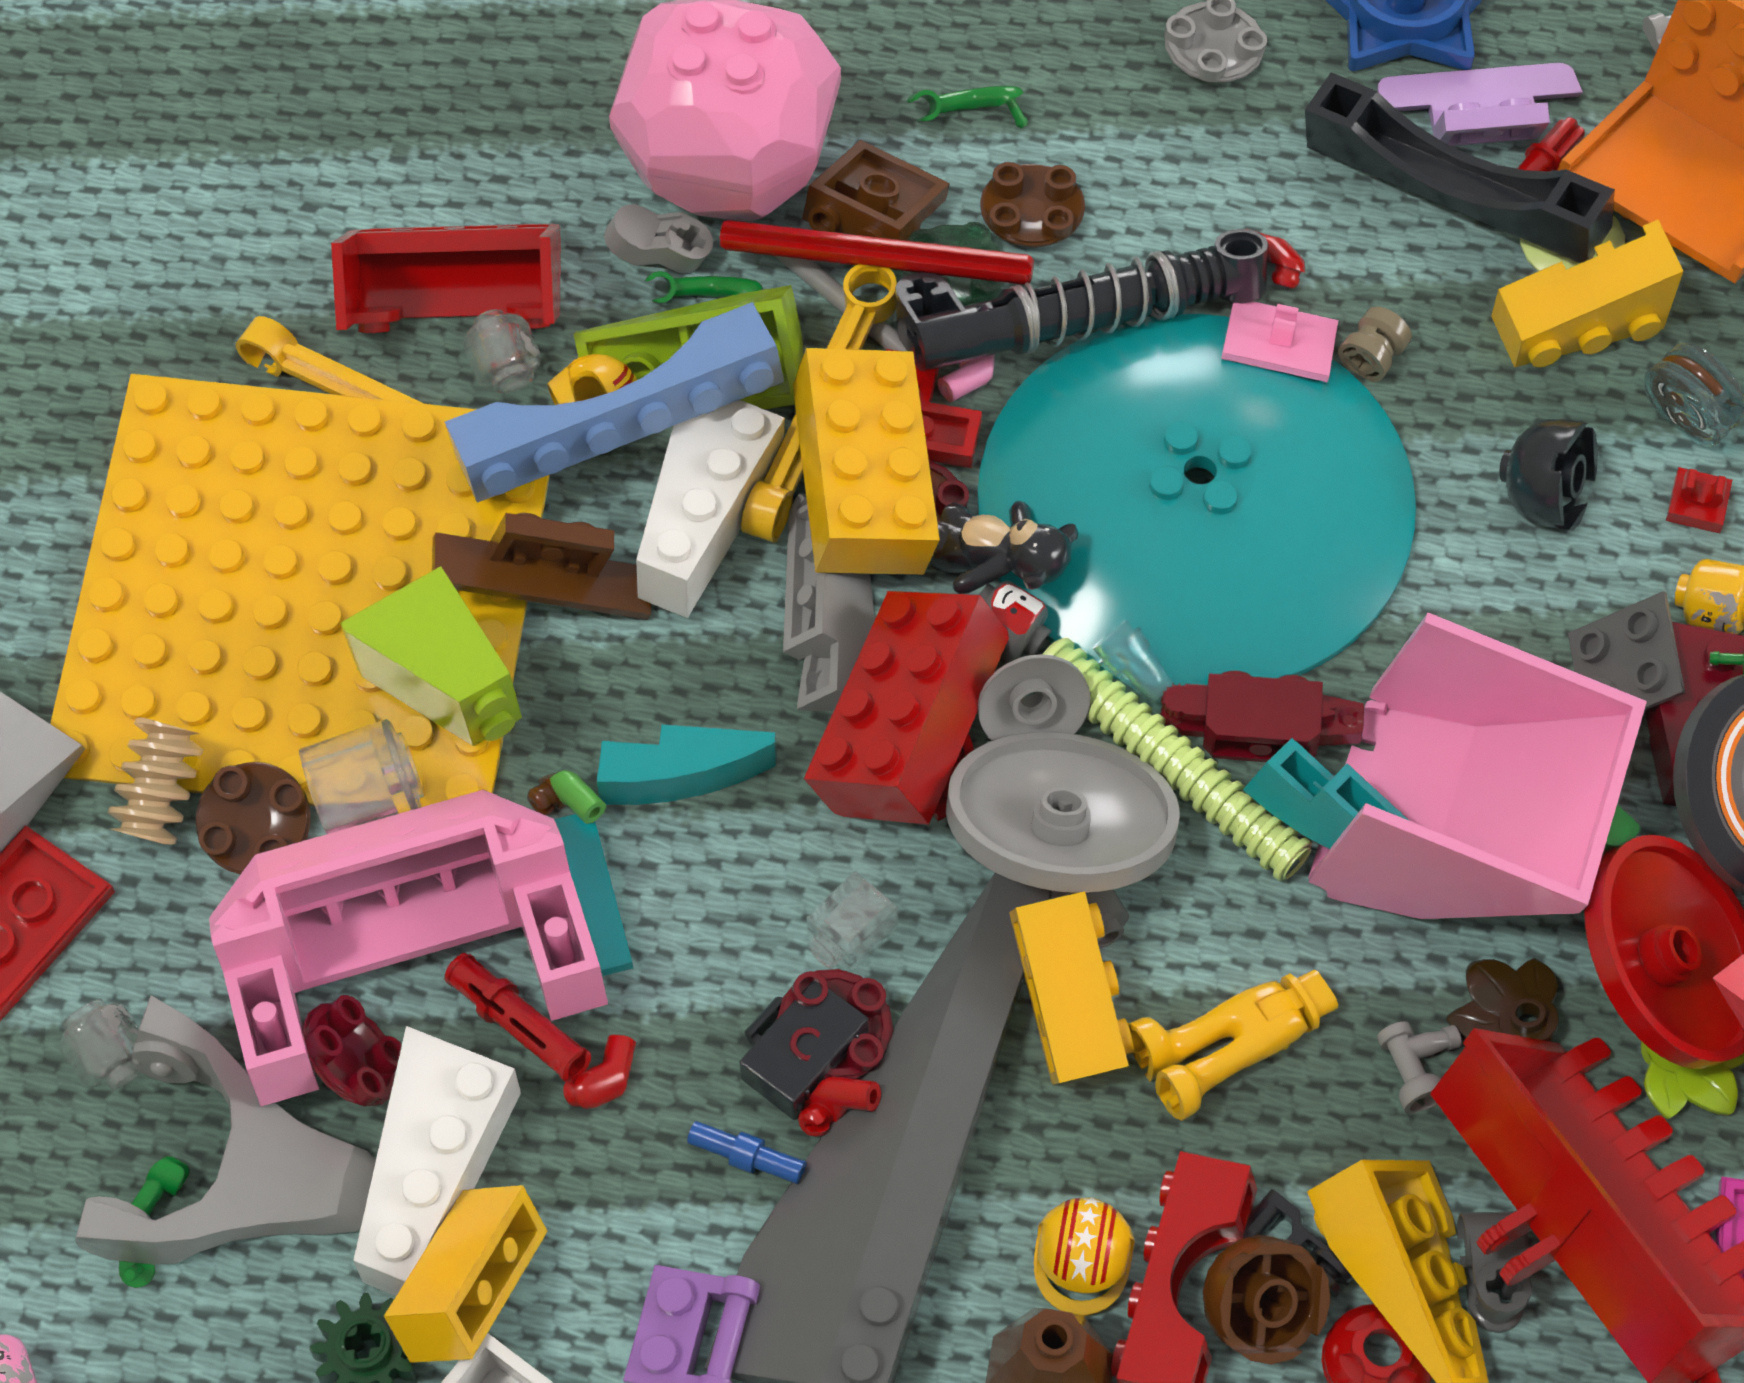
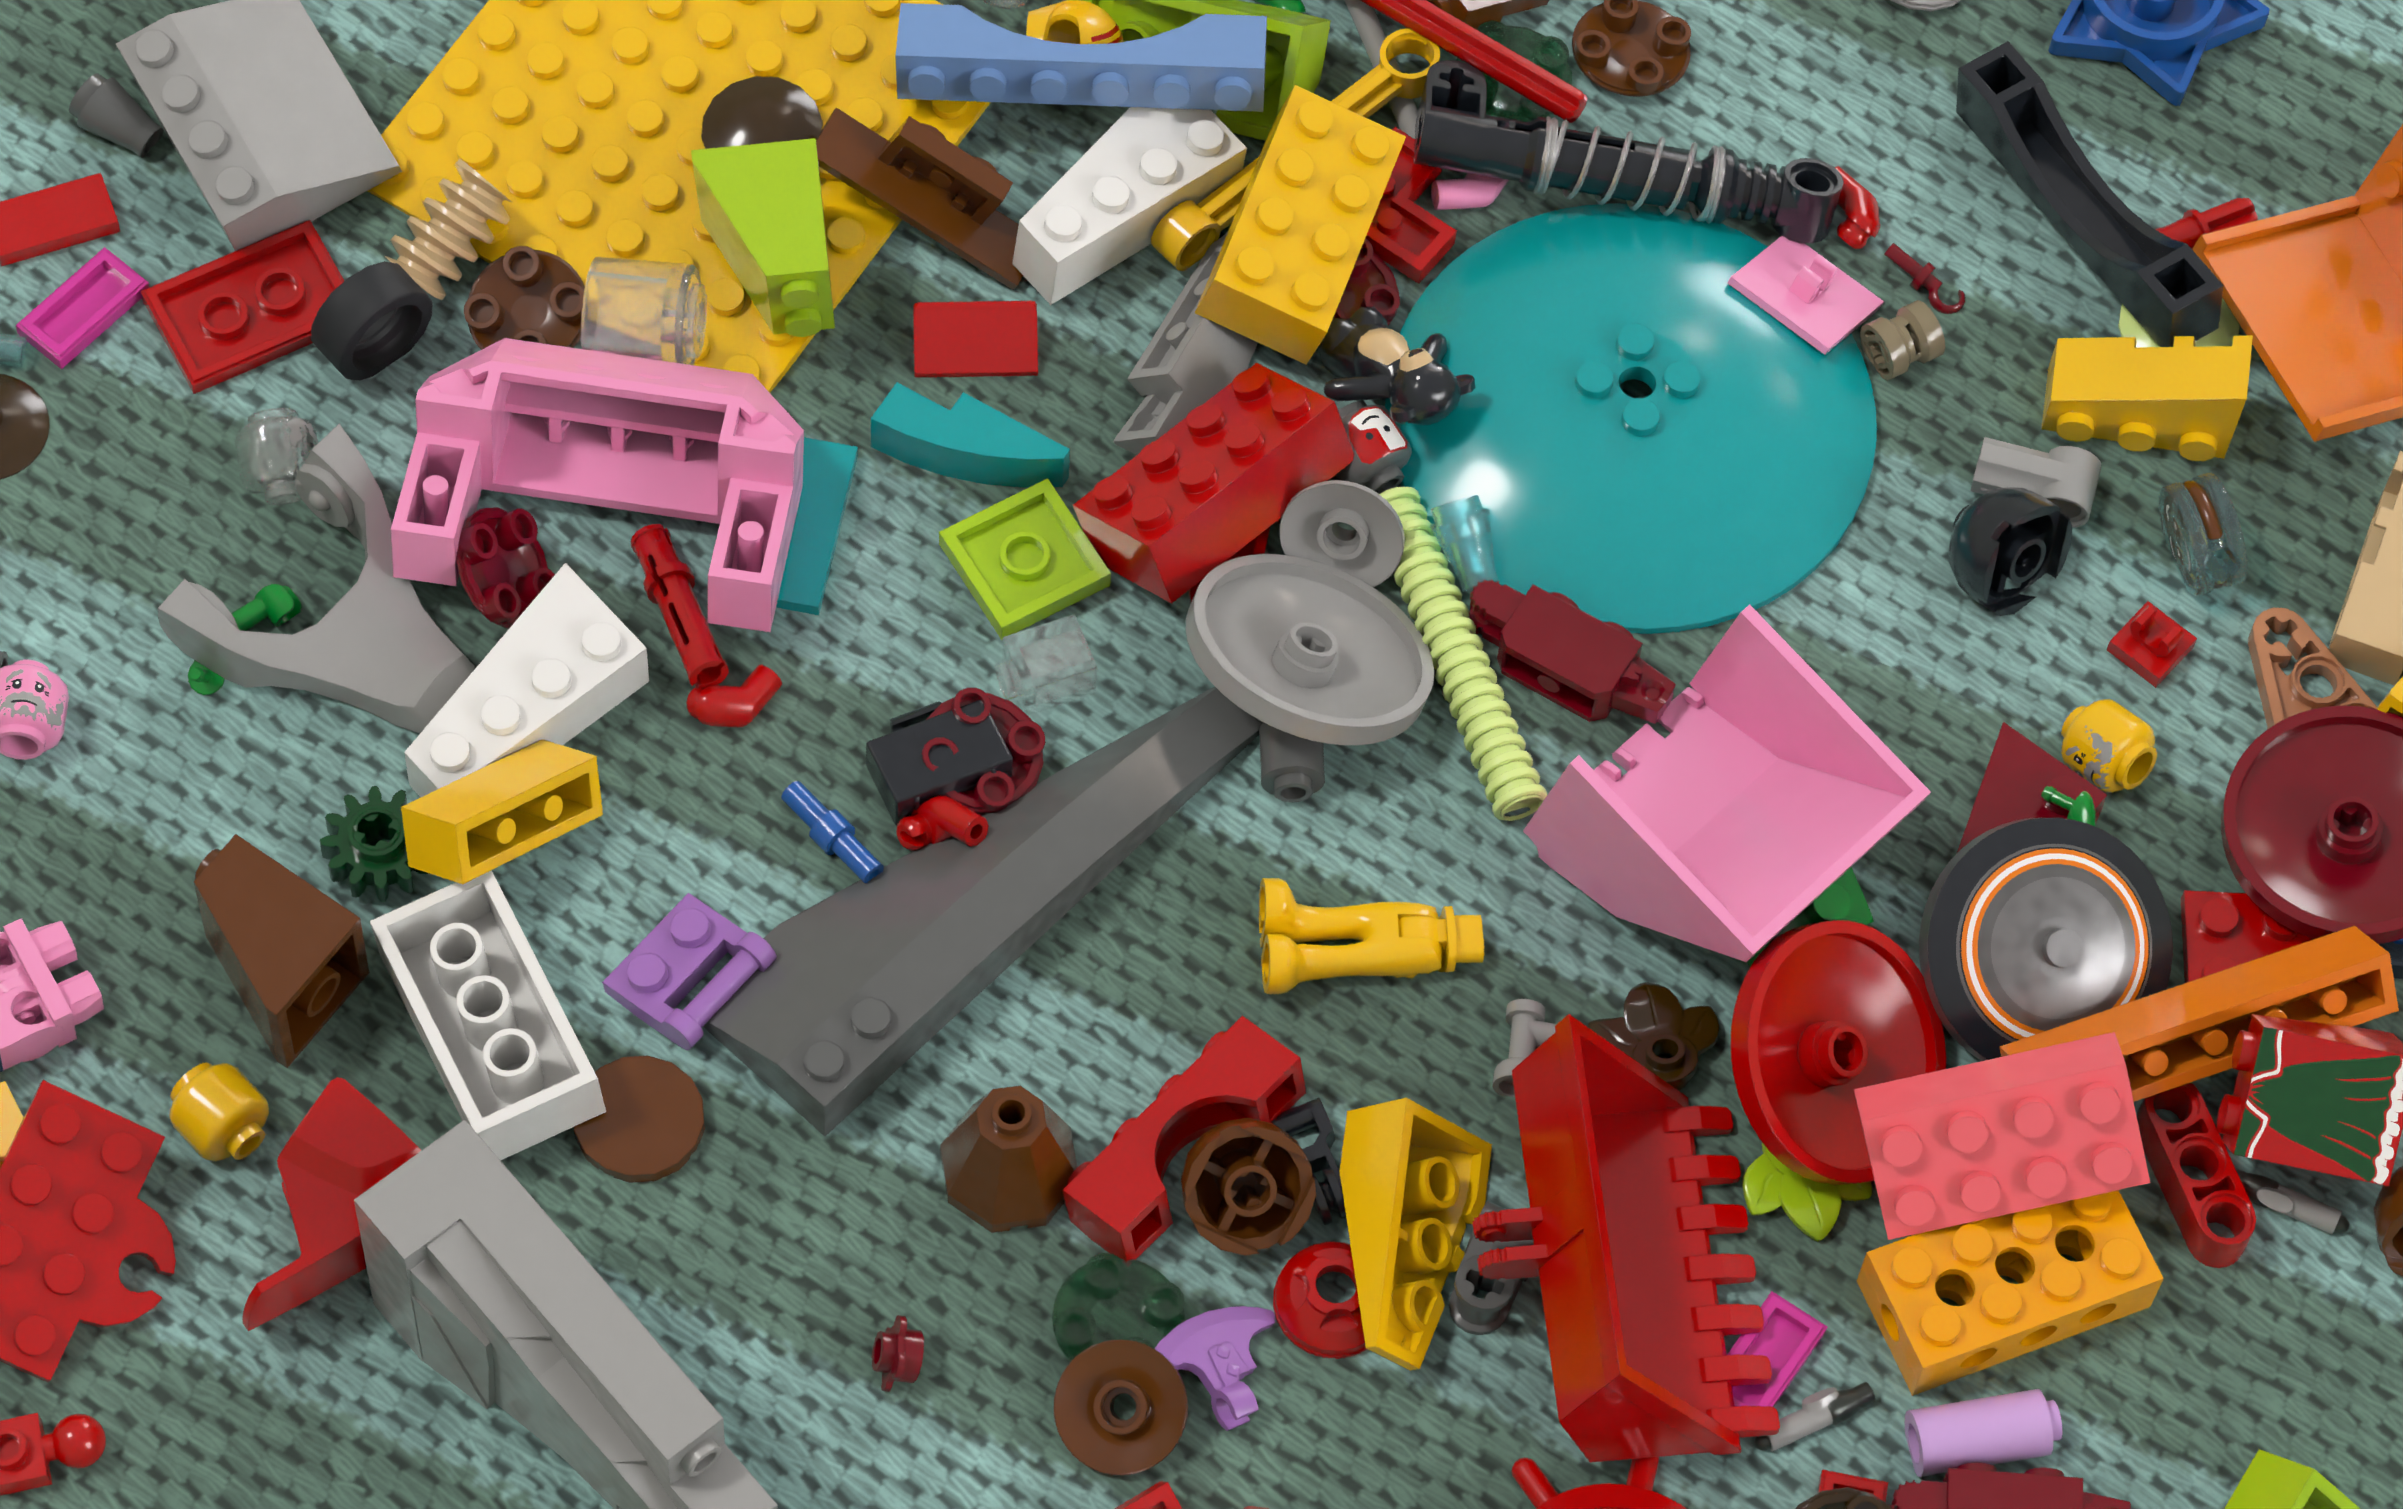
camera: 20 degrees right, 0 degrees up
(127, 890) = (371, 320): none -> black tyre
(371, 568) = (759, 113): none -> dark brown dish
(566, 790) = (840, 417): bright green arm -> none
(640, 674) = (975, 339): none -> red slope
(781, 841) = (1024, 558): none -> lime plate
(1071, 987) = (1224, 817): yellow brick -> none
(1084, 1250) = (1102, 1064): yellow helmet -> none
(1310, 797) = (1556, 727): teal slope -> none
(1358, 287) = (1923, 277): none -> dark red hand
(1484, 102) = (2168, 144): lavender plate -> none
(1555, 396) = (2062, 476): none -> light grey piece
(1632, 651) = (1967, 763): dark grey hinge -> none

